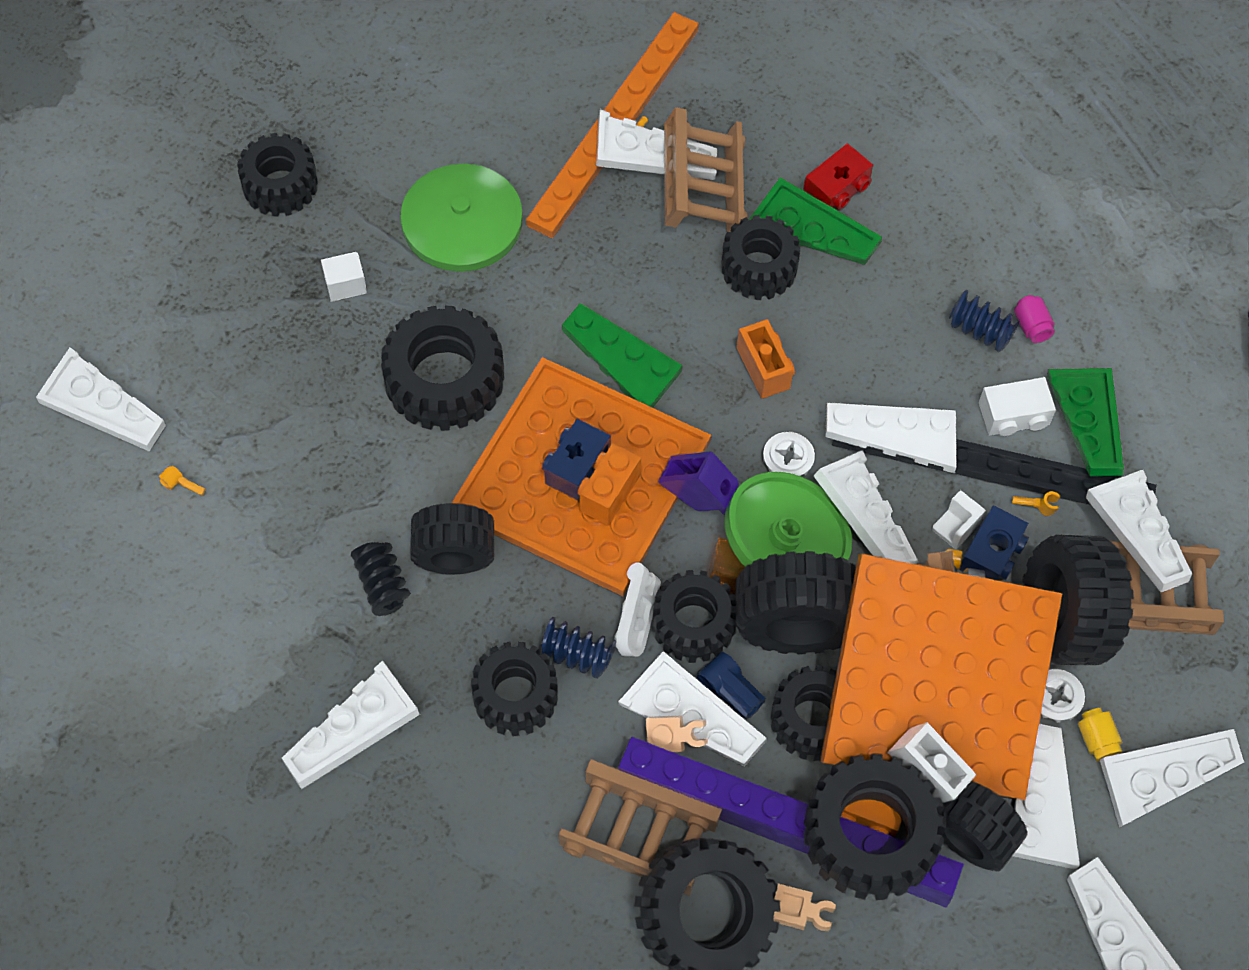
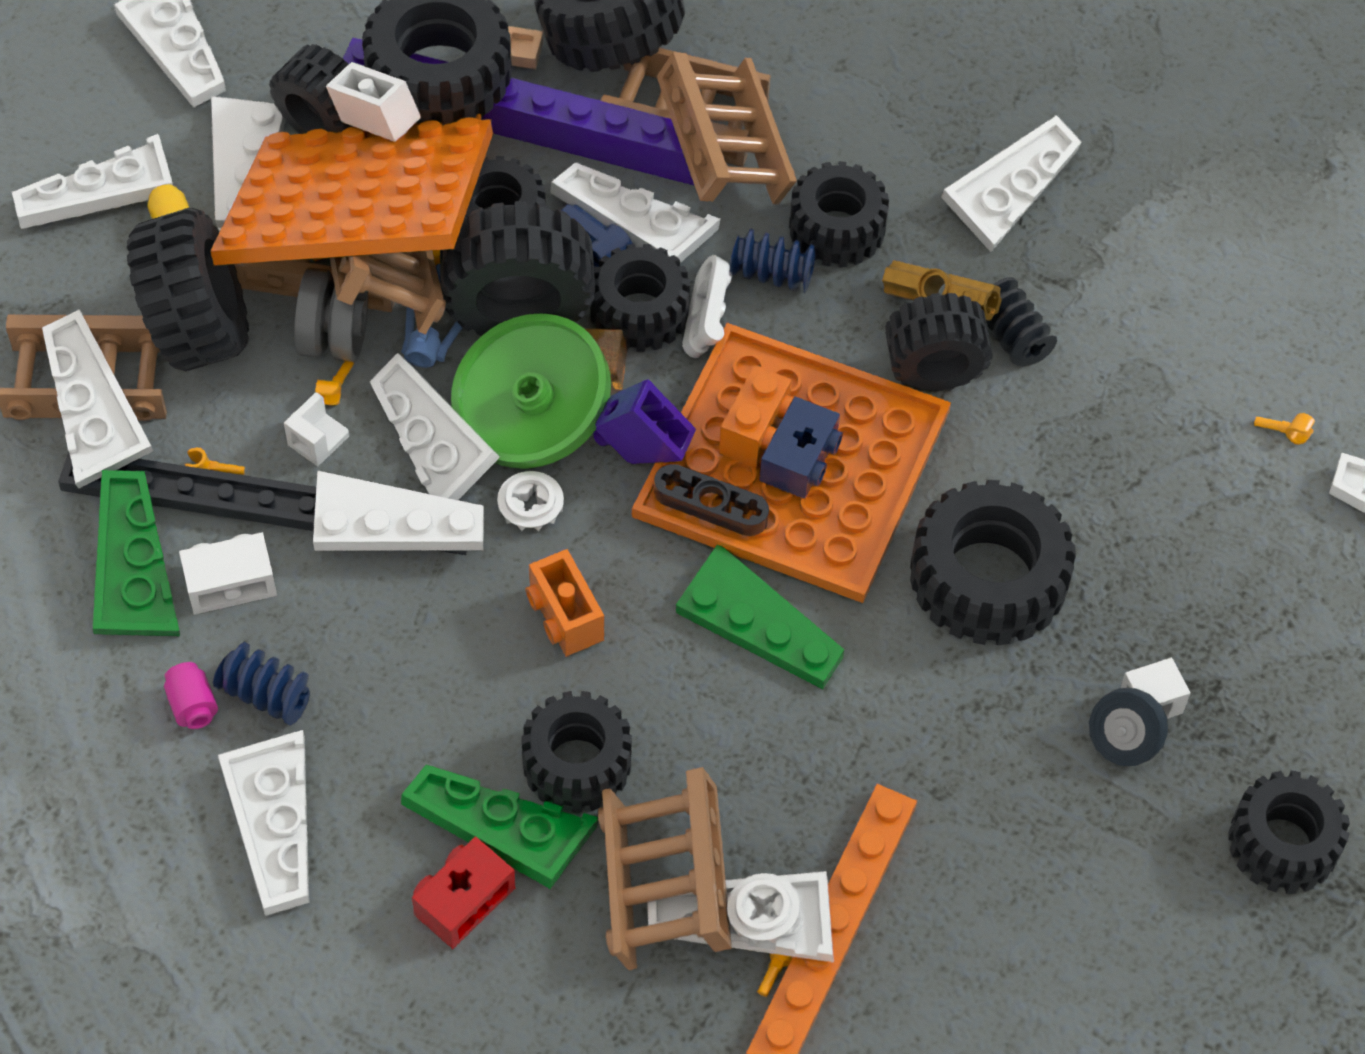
camera: 175 degrees right, 5 degrees down
(370, 246) = (1128, 727): none -> black wheel
(439, 599) = (915, 281): none -> pearl gold piece
(461, 217) = (1010, 808): bright green dish -> none
(639, 760) = (704, 147): none -> medium nougat fence
(642, 126) = (763, 889): none -> white gear
(646, 416) = (717, 515): none -> black beam
(670, 733) = (657, 184): light nougat plate -> none
(970, 242) = (271, 812): none -> white wing
(997, 529) = (262, 418): dark blue brick -> none

